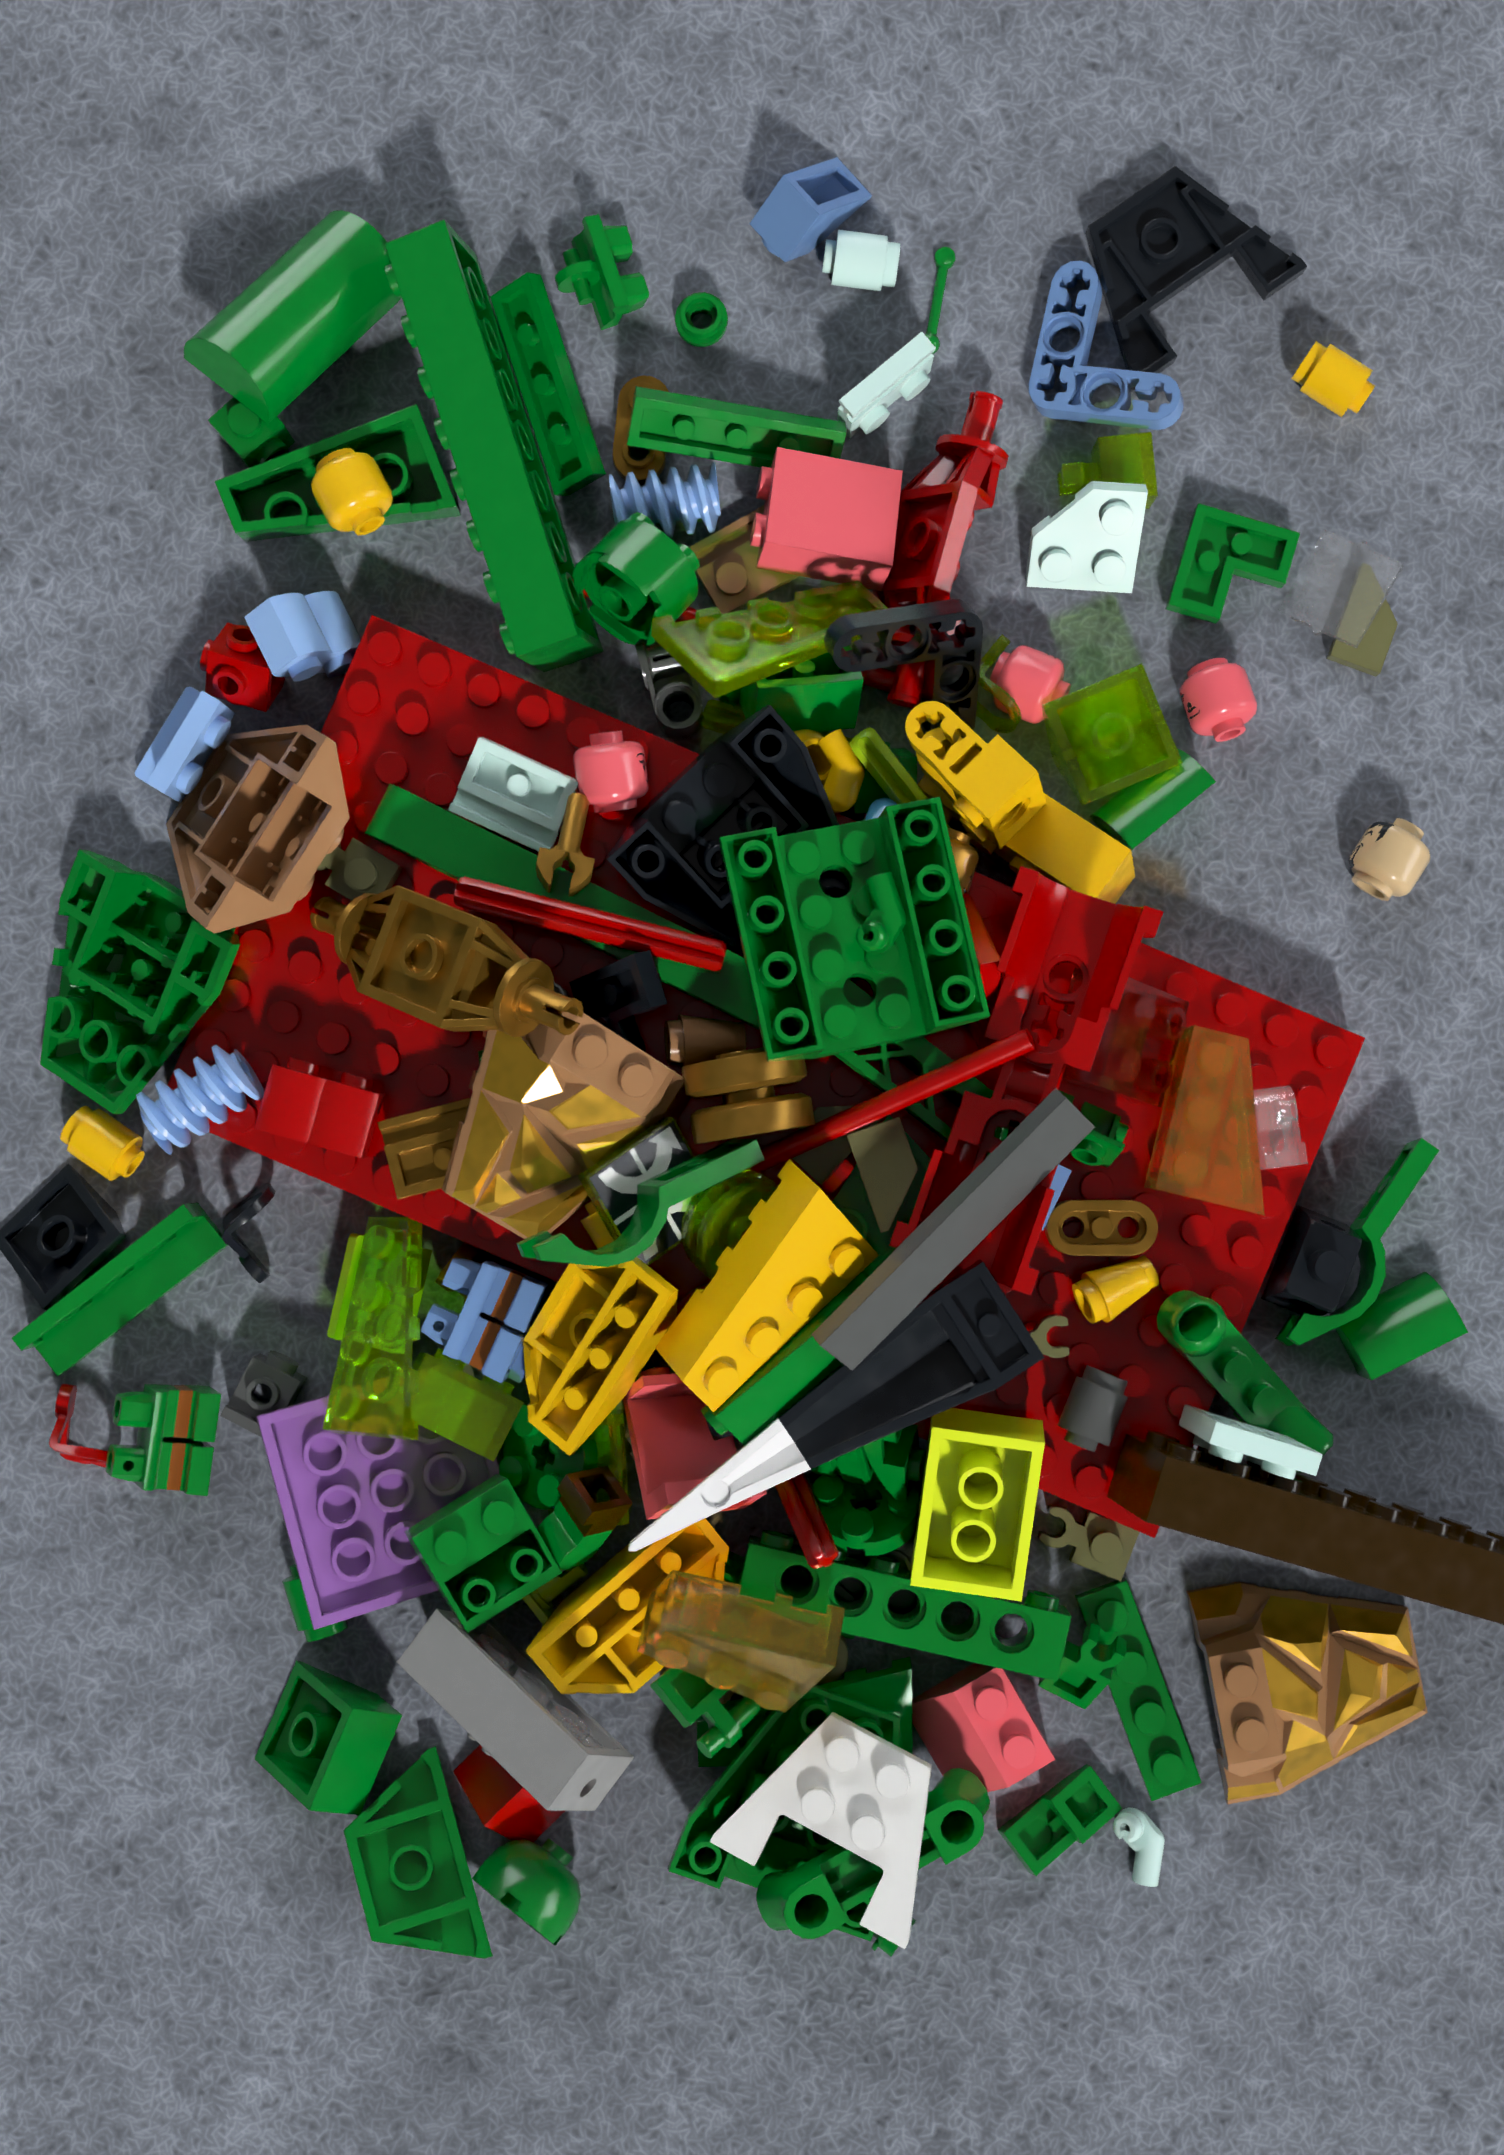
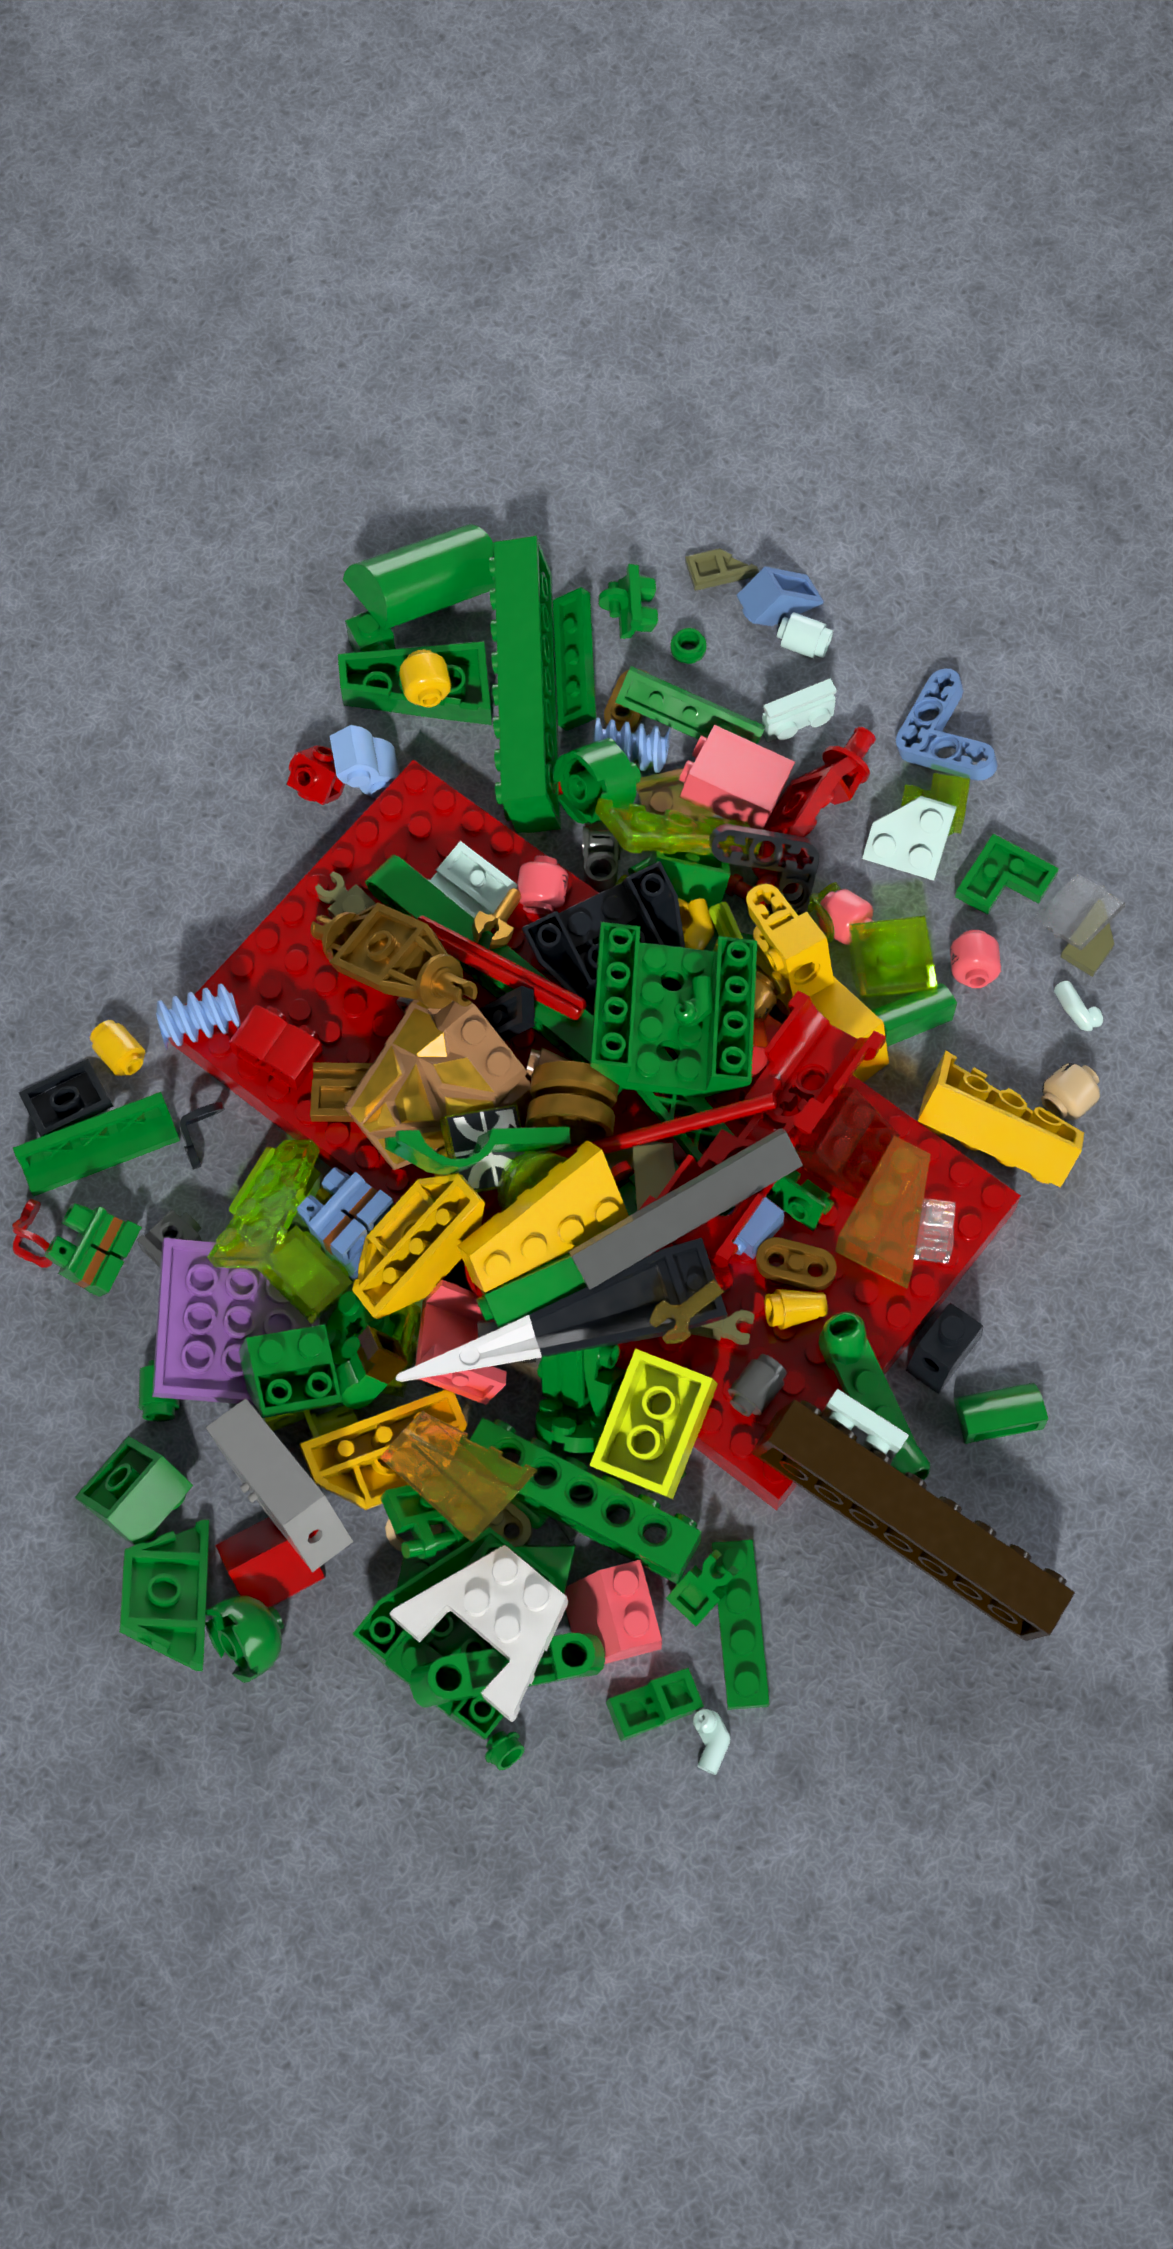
camera: 15 degrees right, 20 degrees down
(129, 977) = (172, 943): green wedge -> none
(185, 743) = (262, 813): light blue bracket -> none
(258, 825) = (300, 858): medium nougat wedge -> none
(707, 182) = (717, 568): none -> olive tile
(807, 1521) = (526, 1403): red axle -> none
(944, 260) = (861, 651): green hinge -> none
(989, 1376) = (684, 1312): none -> clear yellow bar
(1096, 1543) = (738, 1509): olive plate -> none
(1161, 246) = (1013, 674): black wing -> none
(1301, 1680) = (864, 1653): wedge -> none
(1307, 936) = (999, 1123): none -> yellow wedge
(1334, 379) = (1106, 781): yellow brick -> none
(1365, 732) = (1075, 1008): none -> light aqua arm
(1370, 1227) = (936, 1386): green piece -> none

